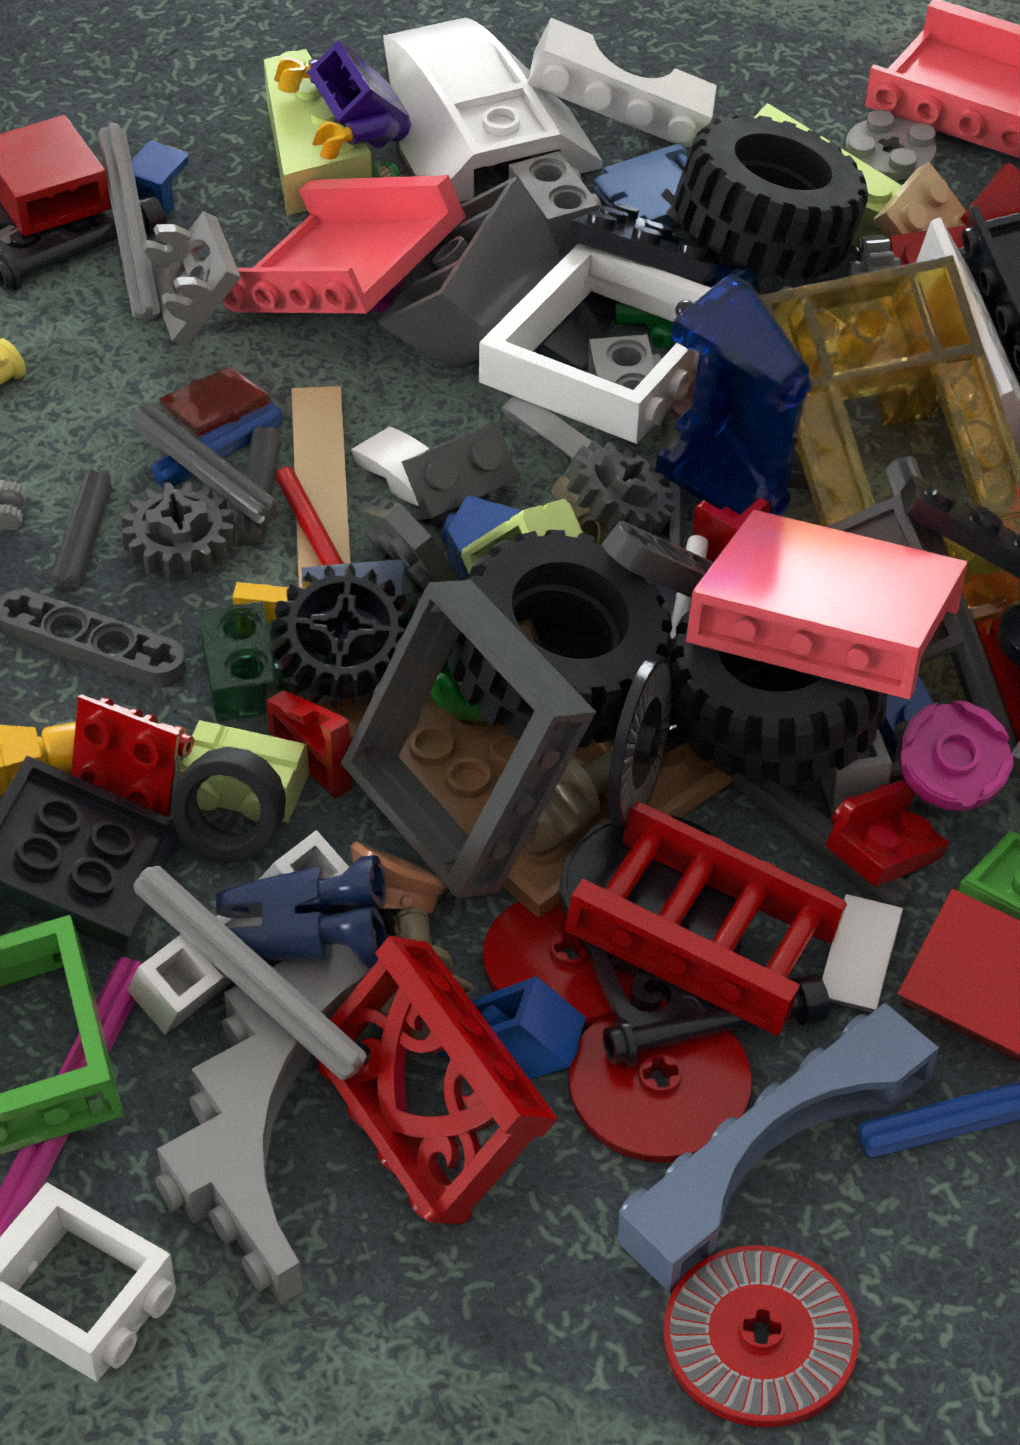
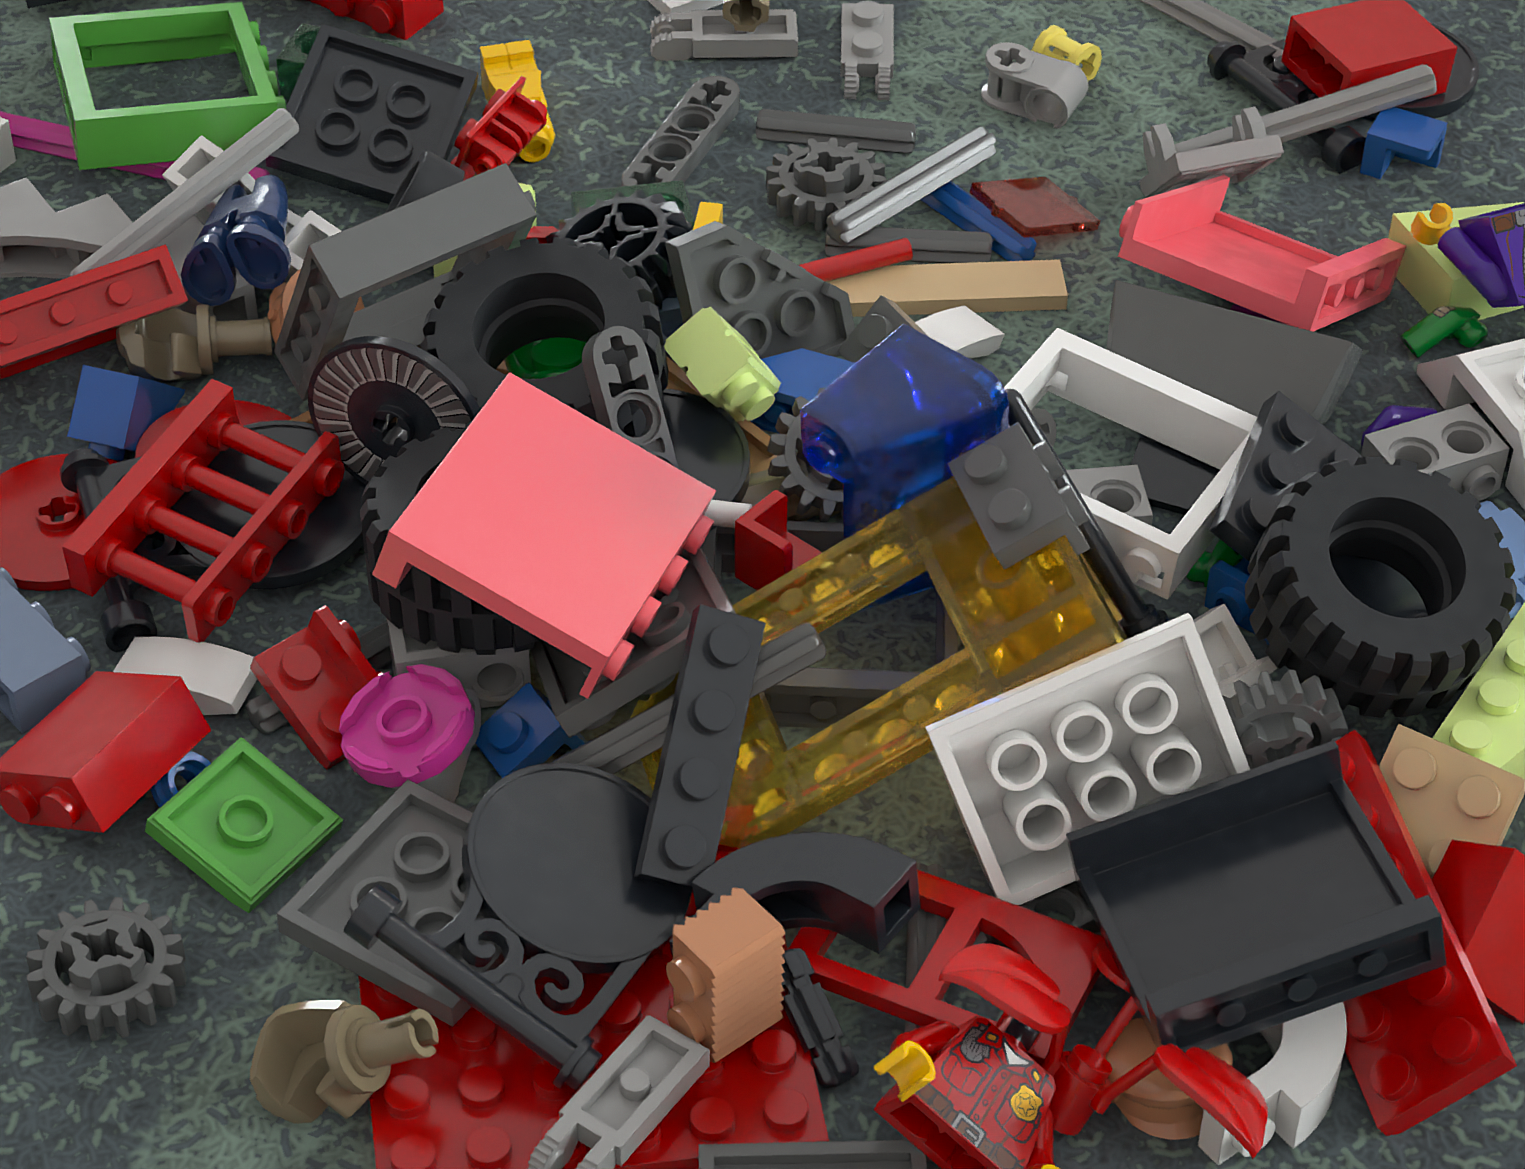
camera: 90 degrees right, 5 degrees down
(39, 392) = (1034, 86): none -> light grey piece
(820, 297) = (1016, 496): none -> dark grey bracket

